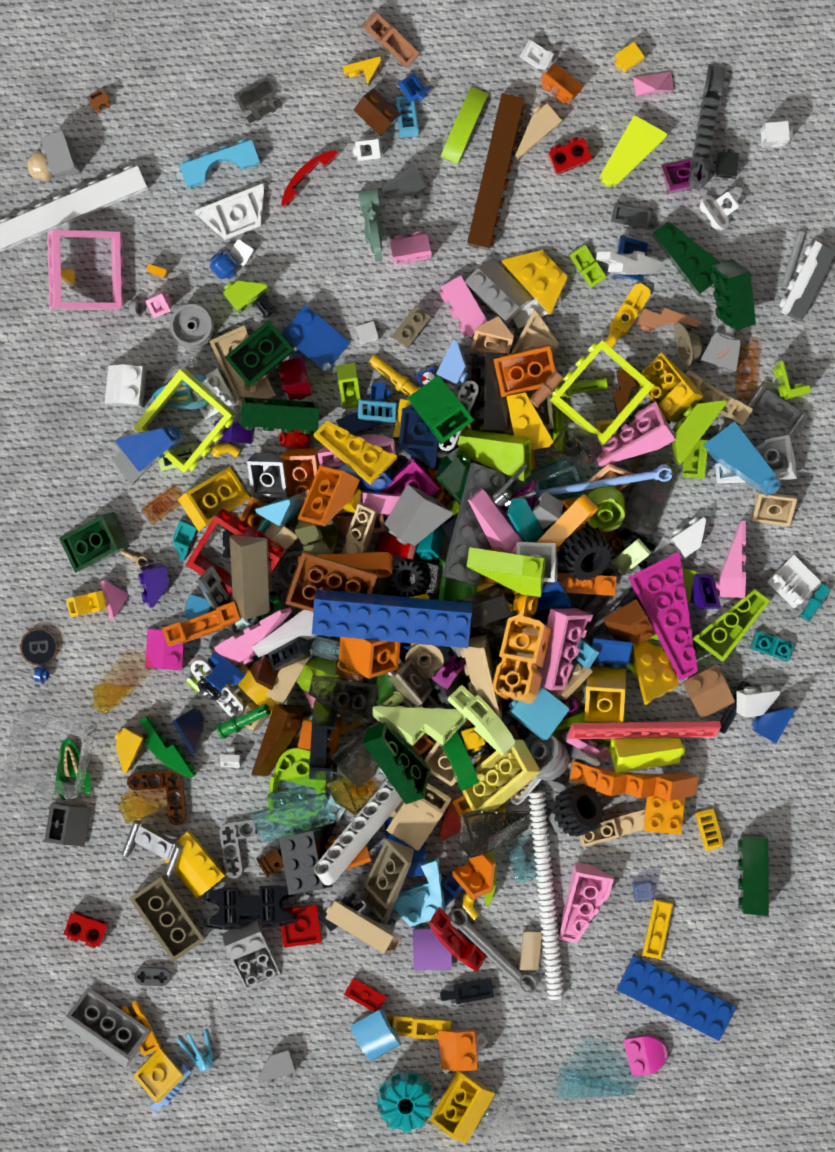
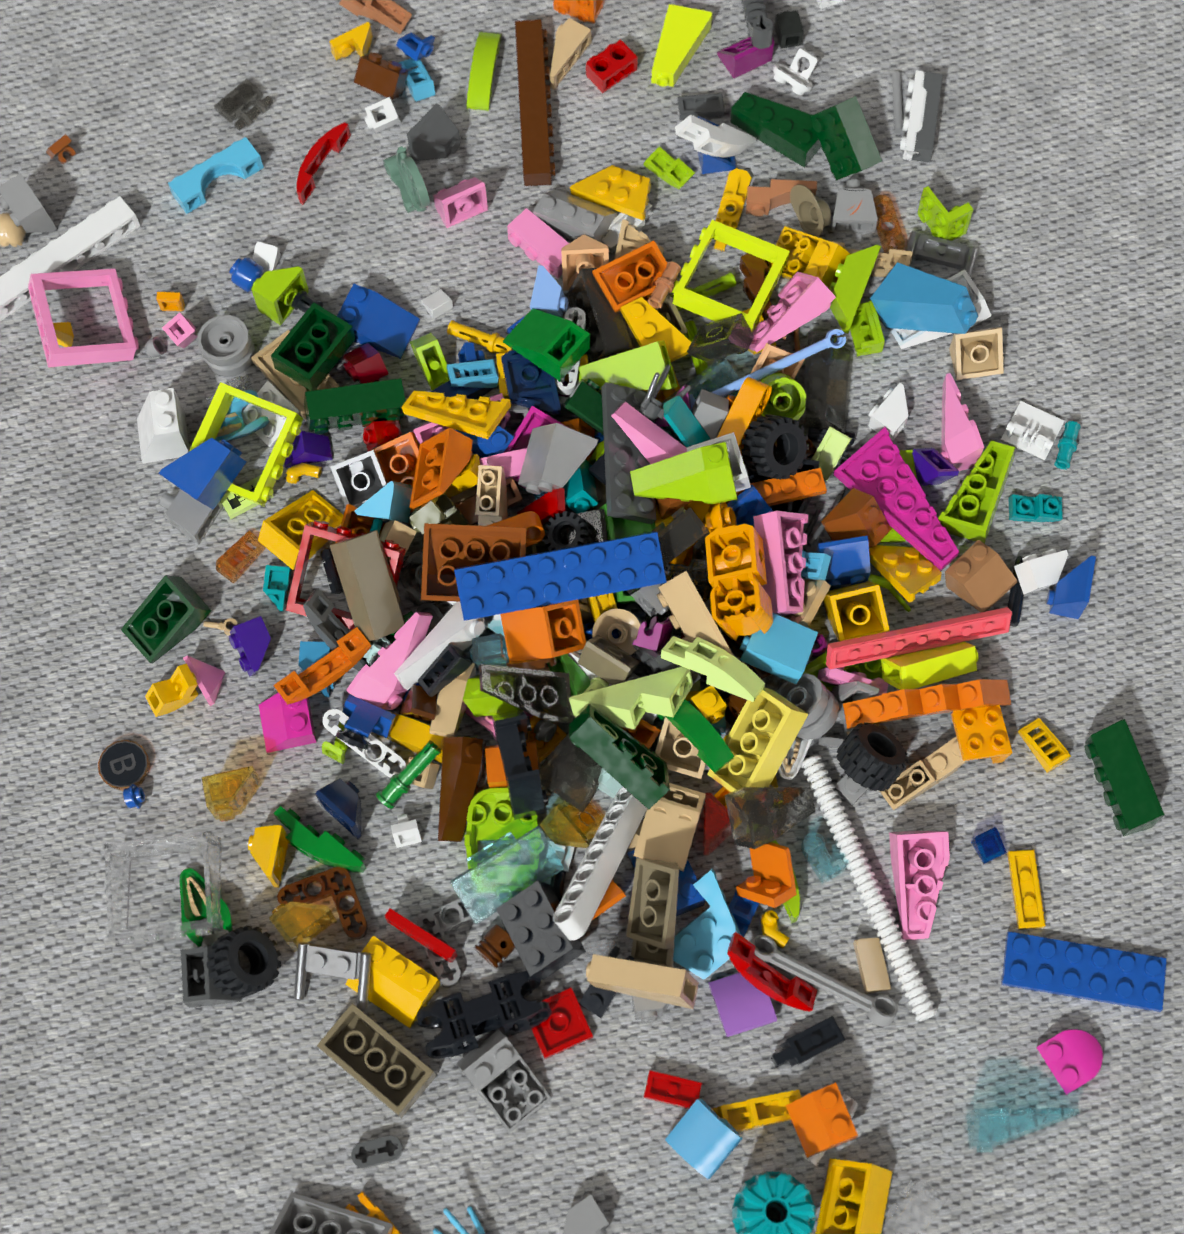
camera: 15 degrees left, 20 degrees down
(80, 820) = (262, 959): none -> black tyre
(87, 923) = (270, 1105): red brick -> none
(221, 841) = (420, 935): none -> red tile
(235, 213) = (245, 221): white wing -> none
(411, 327) = (486, 279): dark tan brick -> none

